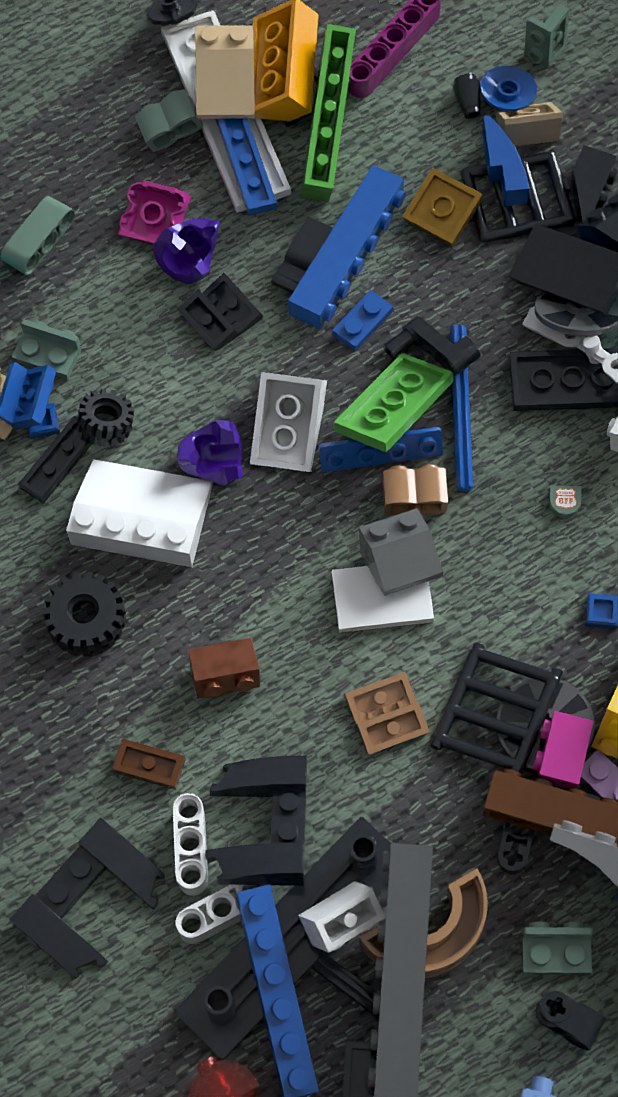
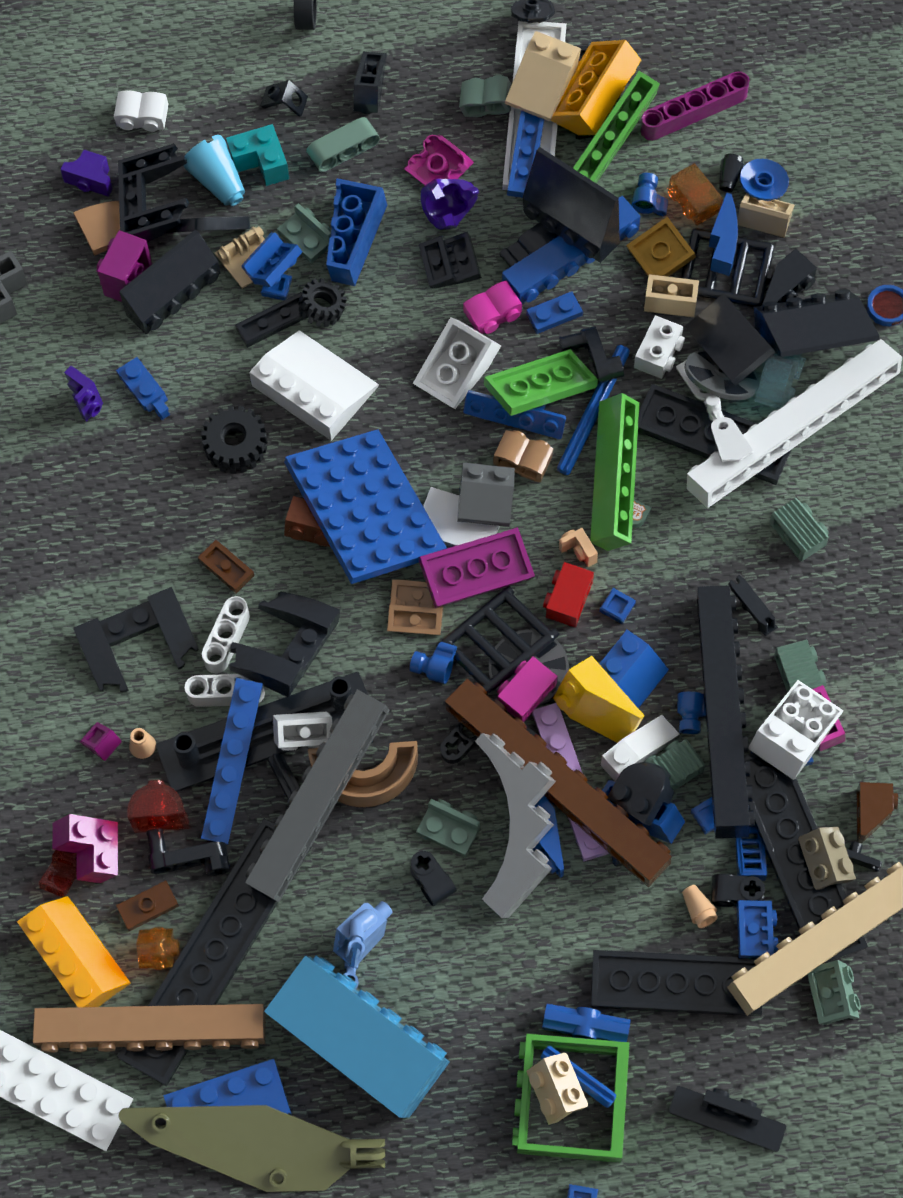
camera: 25 degrees right, 0 degrees up
(33, 157) = (369, 82): none -> black slope
(98, 320) = (354, 226): none -> blue wedge
(106, 1038) = (101, 741): none -> magenta slope
(162, 1027) = (141, 743): none -> light nougat cone
(212, 453) = (387, 362): dark purple piece -> none
(274, 625) = (364, 505): none -> blue plate
(295, 343) = (492, 308): none -> dark pink brick
(334, 195) = (572, 206): none -> black slope
(396, 157) = (645, 197): none -> blue piece
(432, 638) = (476, 567): none -> magenta plate
(446, 132) = (695, 194): none -> clear orange brick
(446, 770) = (438, 666): none -> blue piece
(481, 249) = (671, 295): none -> tan brick
(496, 310) = (659, 346): none -> white brick
(524, 466) = (615, 472): none -> bright green brick
(534, 563) = (582, 546): none -> light nougat bracket
(546, 38) = (815, 153): sand green bracket -> none
(547, 622) = (569, 594): none -> red brick

